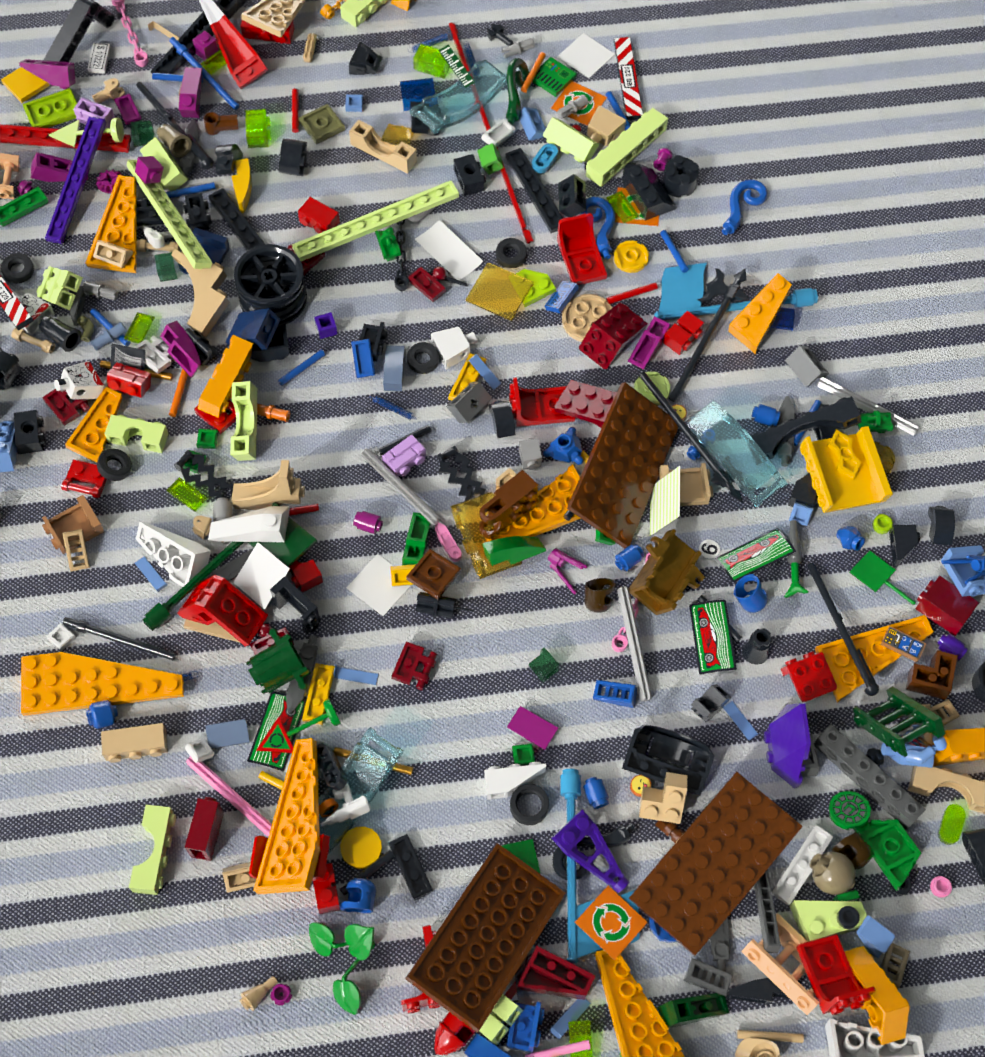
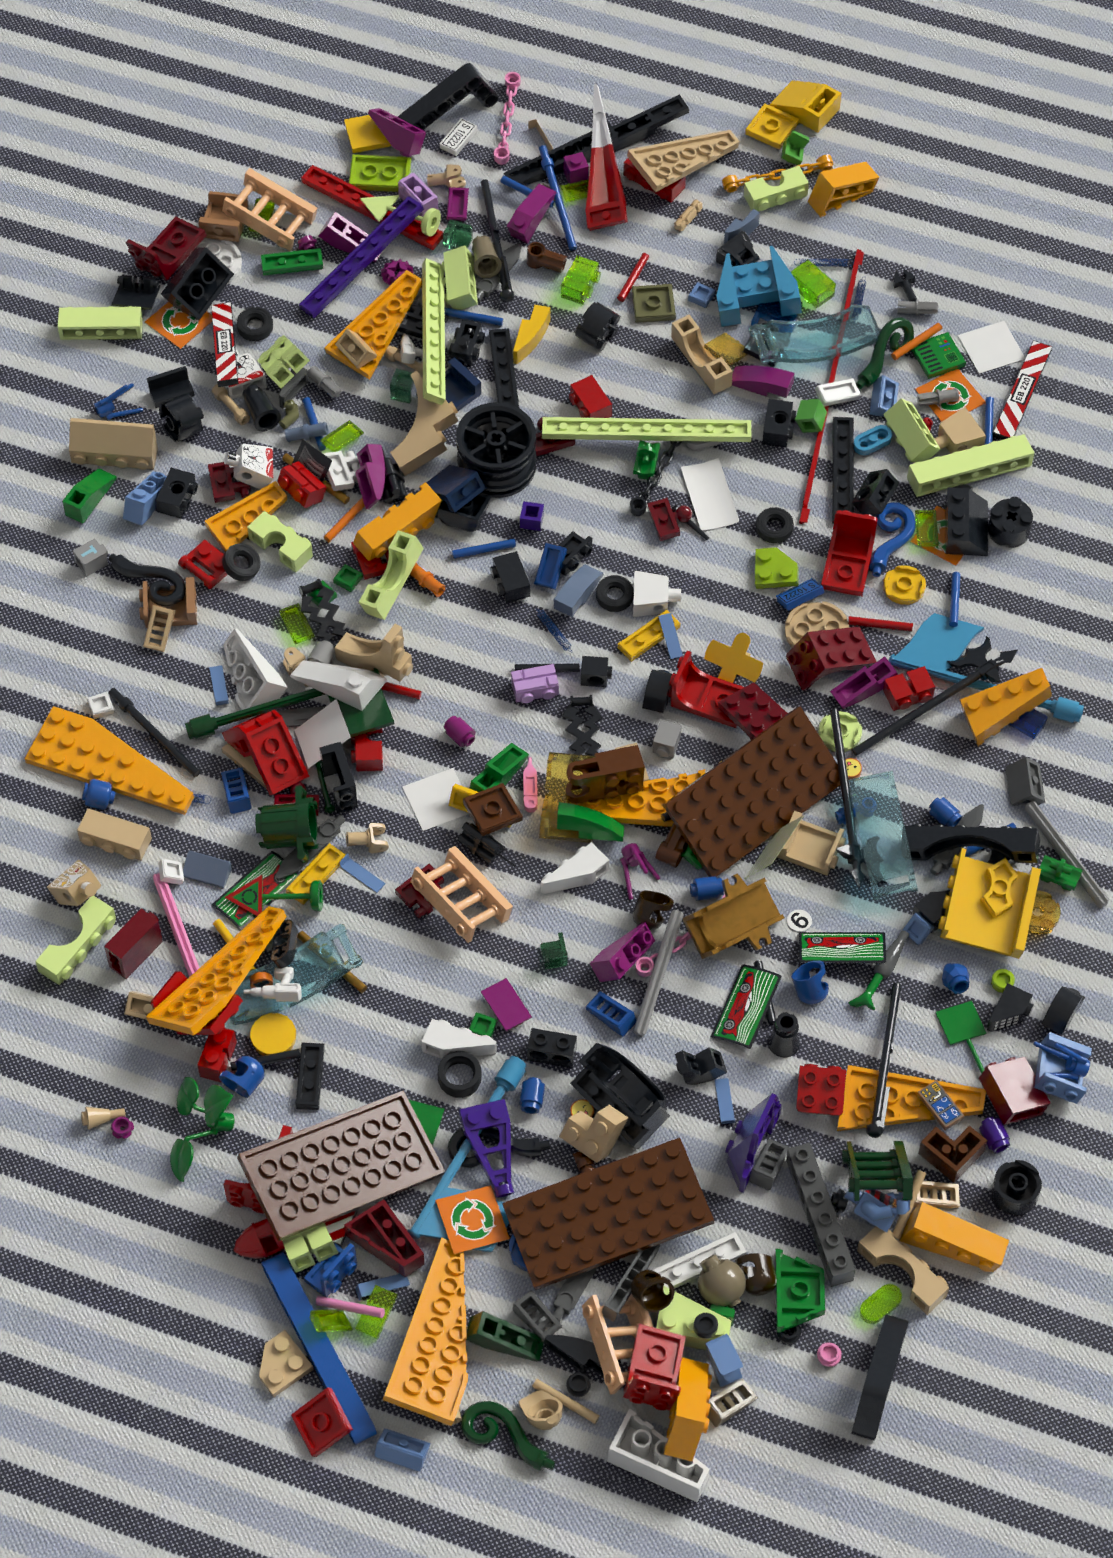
camera: 30 degrees right, 5 degrees down
(22, 512) = (129, 569): none -> black plant
(126, 803) = (74, 885): none -> tan torso
(149, 169) = (439, 277): magenta brick -> none
(221, 664) = (238, 802): none -> blue slope
(226, 158) = (529, 296): black brick -> none
(299, 634) = (329, 808): none -> dark green axle
(337, 380) = (510, 577): none -> black brick
(345, 644) = (367, 838): none -> tan piece
(353, 40) = (748, 225): none -> sand blue slope
(393, 77) = (756, 284): none -> dark azure wedge
(401, 487) = (513, 711): light grey axle -> none
(439, 146) = (763, 380): none -> magenta slope
(444, 425) = (595, 671): none -> black brick
(453, 639) = (469, 877): none -> light nougat fence
(456, 65) = (831, 300): sticker -> none
(469, 402) = (621, 658): dark grey brick -> none
(499, 291) = (736, 559): clear yellow piece -> none
(526, 590) = (580, 870): none -> white slope
(545, 368) = (734, 659): none -> yellow piece
(566, 447) = (707, 748): blue rock -> none
(585, 539) = (672, 848): none -> reddish brown piece
(589, 745) = (552, 1048): none -> black brick
(597, 646) = (622, 954): none -> magenta slope
(664, 156) = (1006, 492): magenta bush -> none
(734, 220) = (1043, 595): blue plant -> none
(771, 1016) = (578, 1384): none -> black plate
(788, 913) = (649, 1292): none -> dark brown helmet
(849, 810) = (780, 1236): green tile -> none

